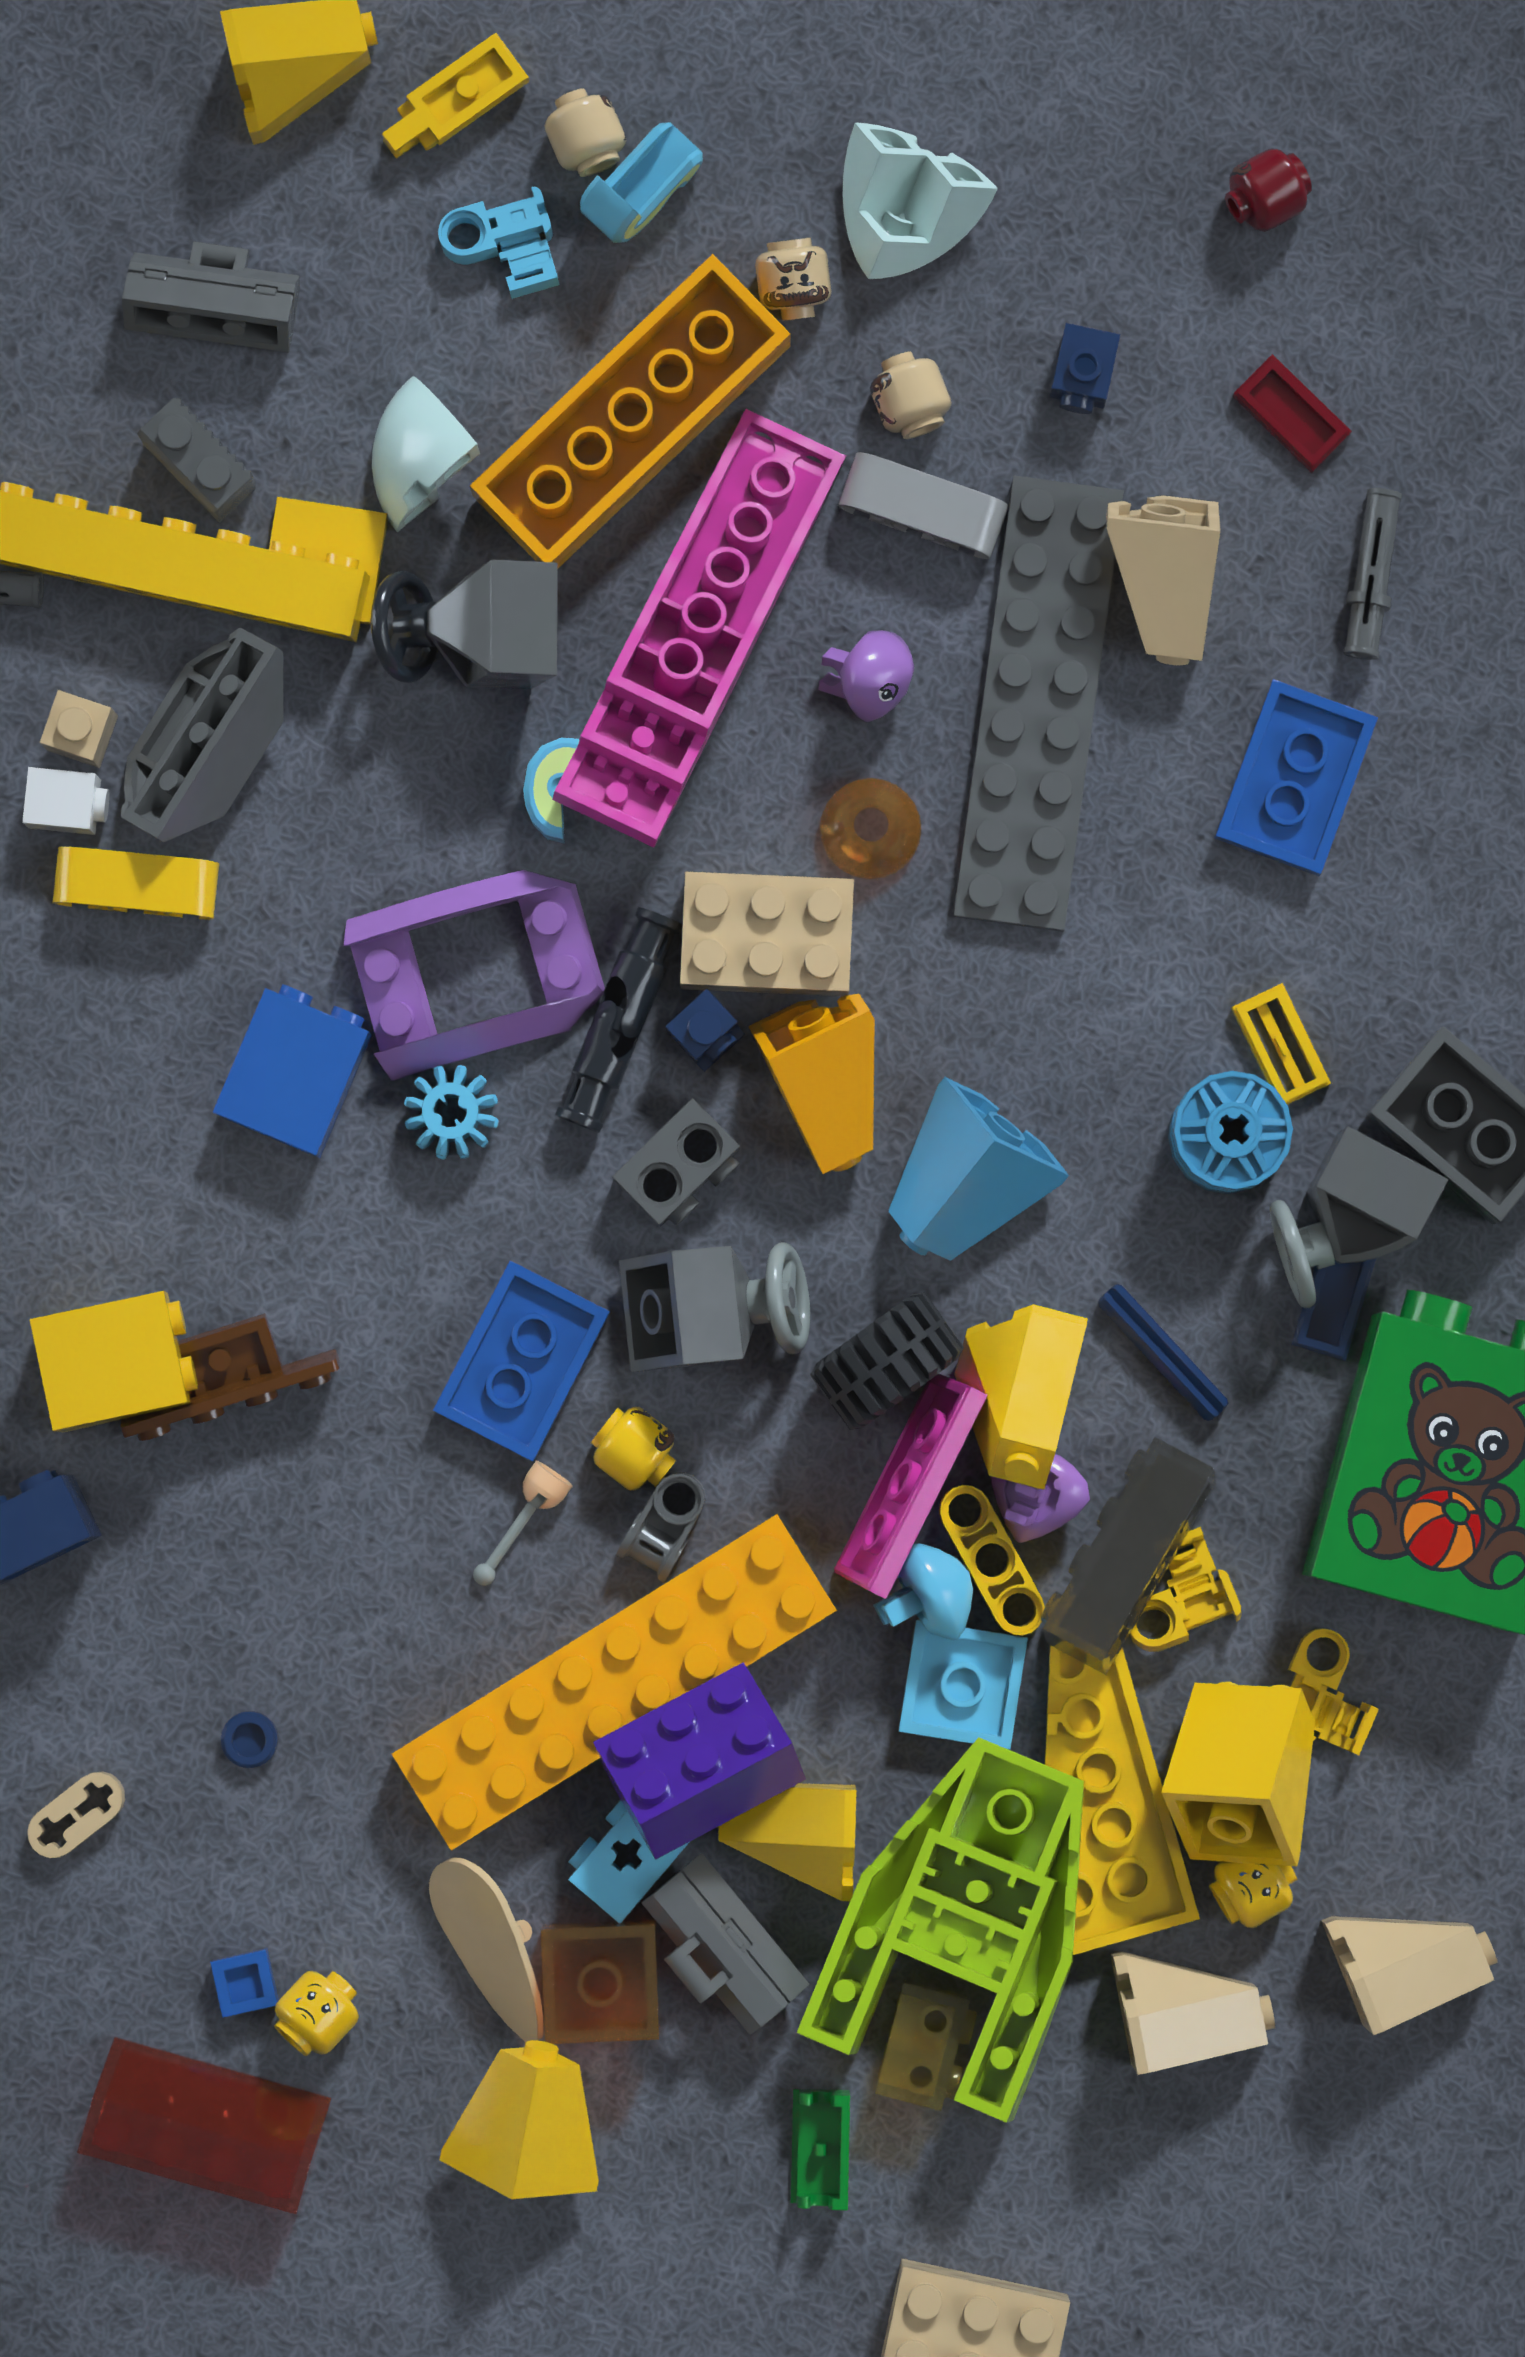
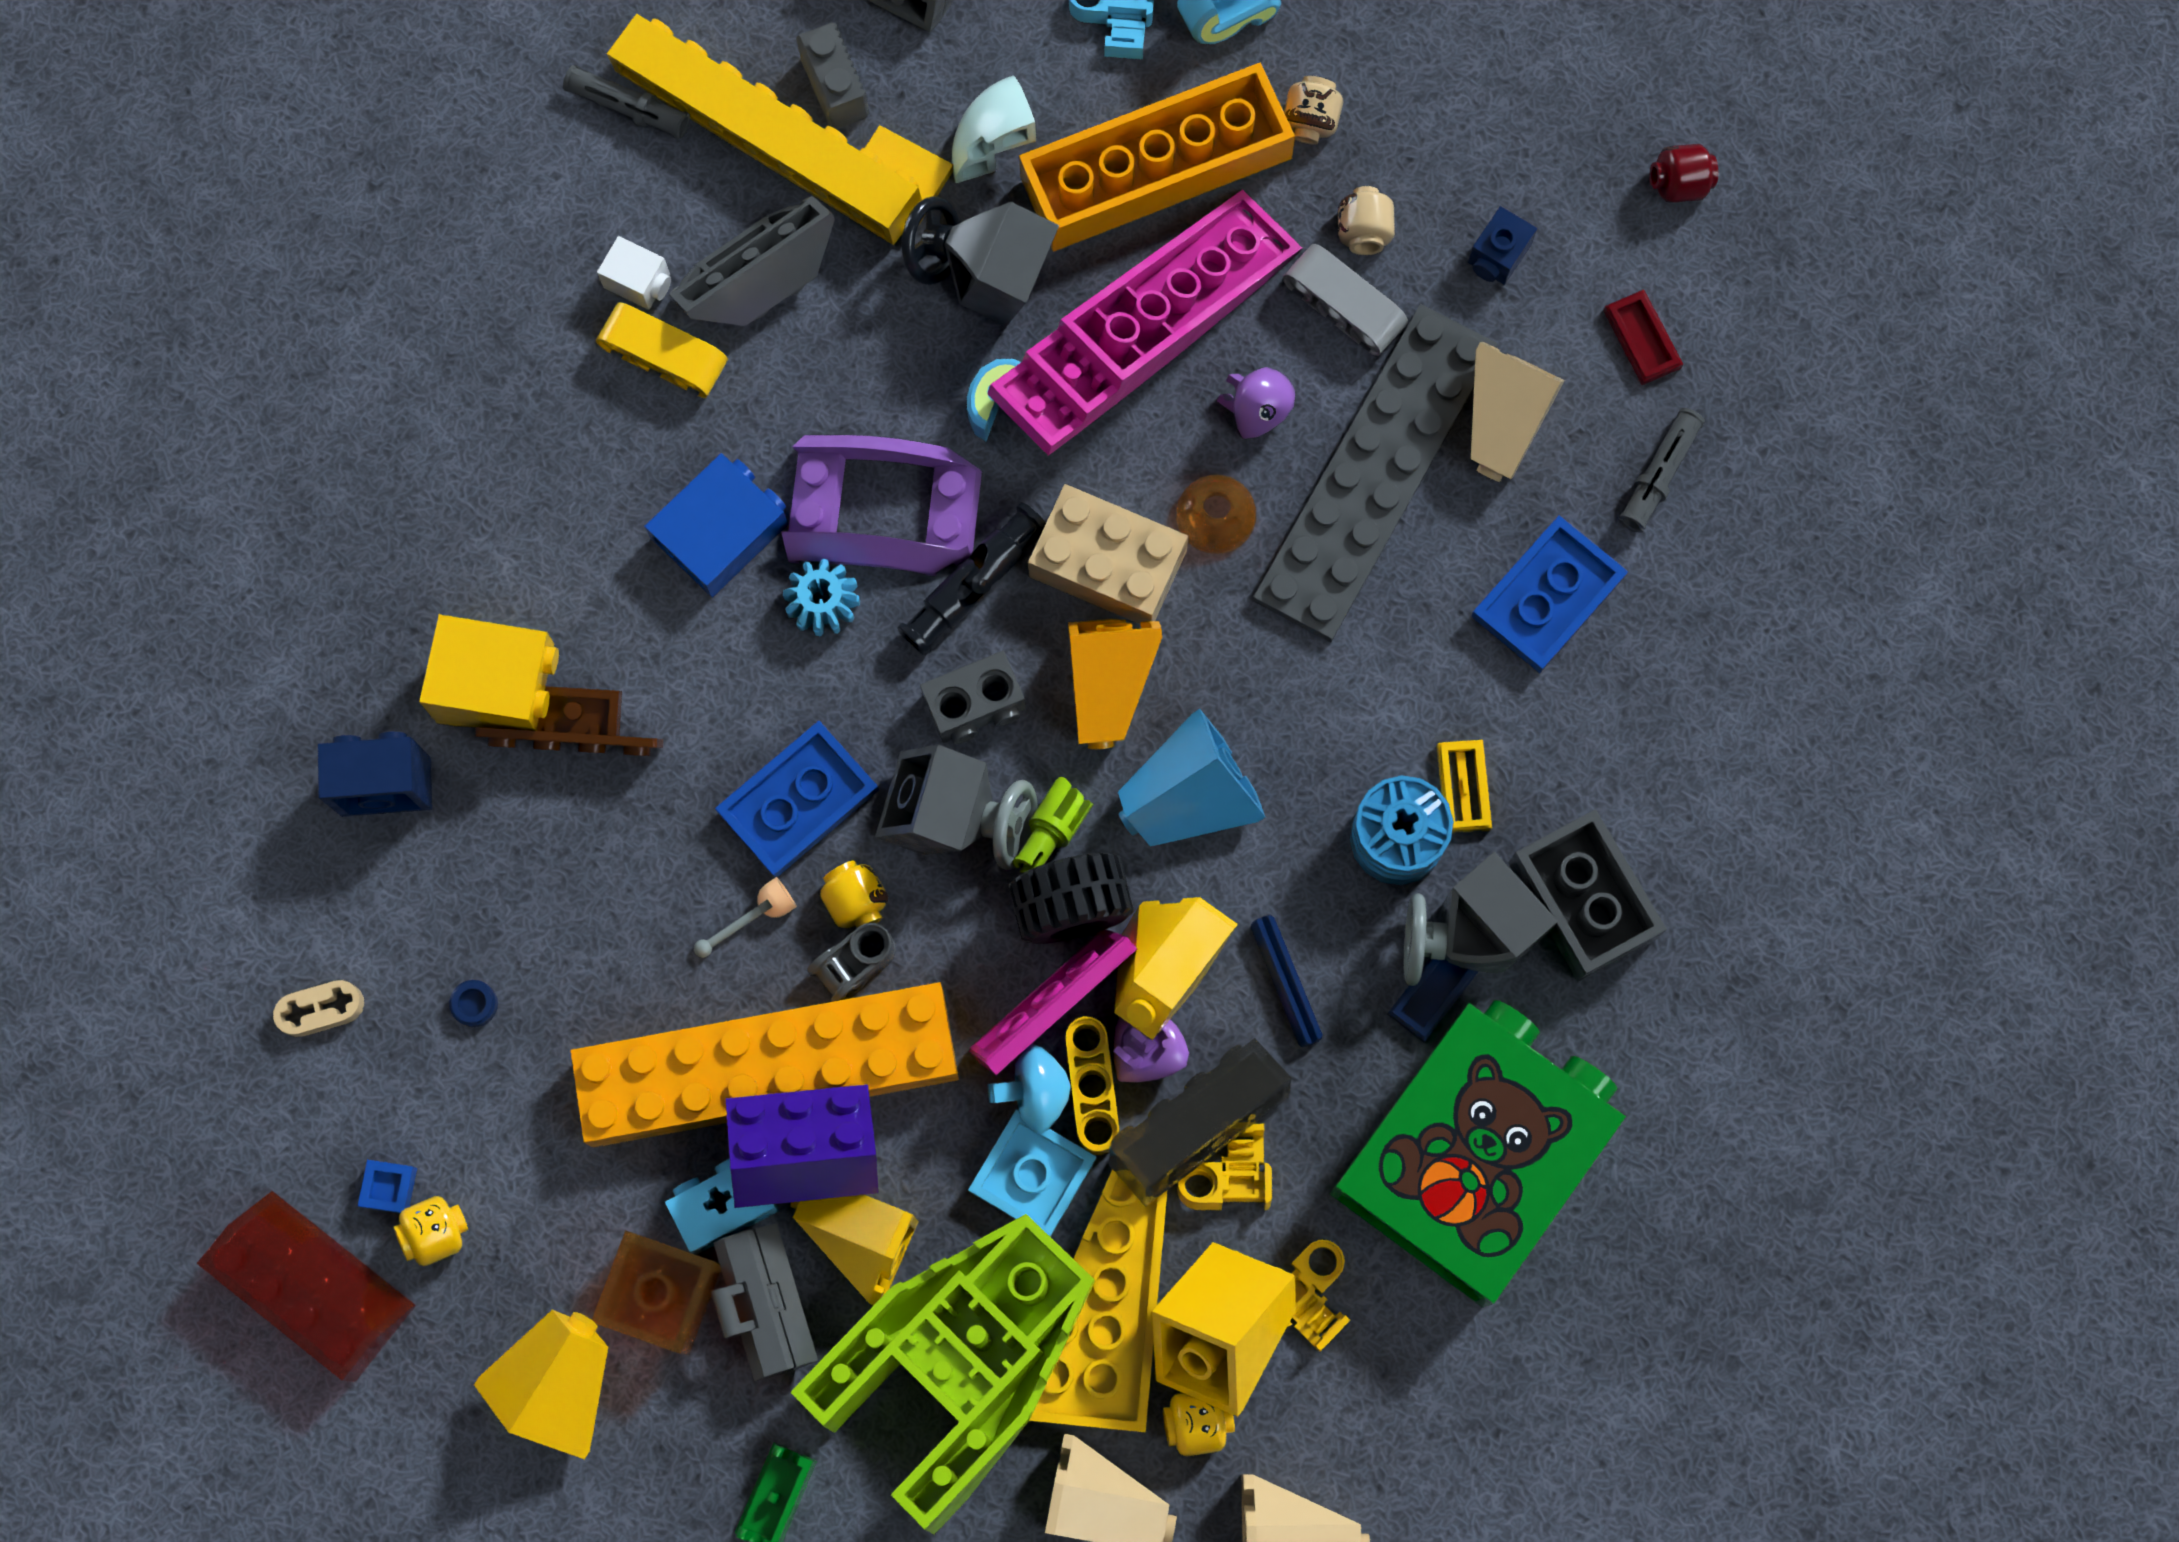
camera: 20 degrees right, 10 degrees down
(78, 729) = (667, 227): tan brick -> none
(488, 1942) = (584, 1227): tan shield -> none
(705, 1030) = (1033, 608): dark blue brick -> none
(829, 1279) = (1053, 824): none -> lime arm
(905, 201) = (1415, 87): light aqua brick -> none
(924, 2045) = (888, 1446): clear yellow brick -> none

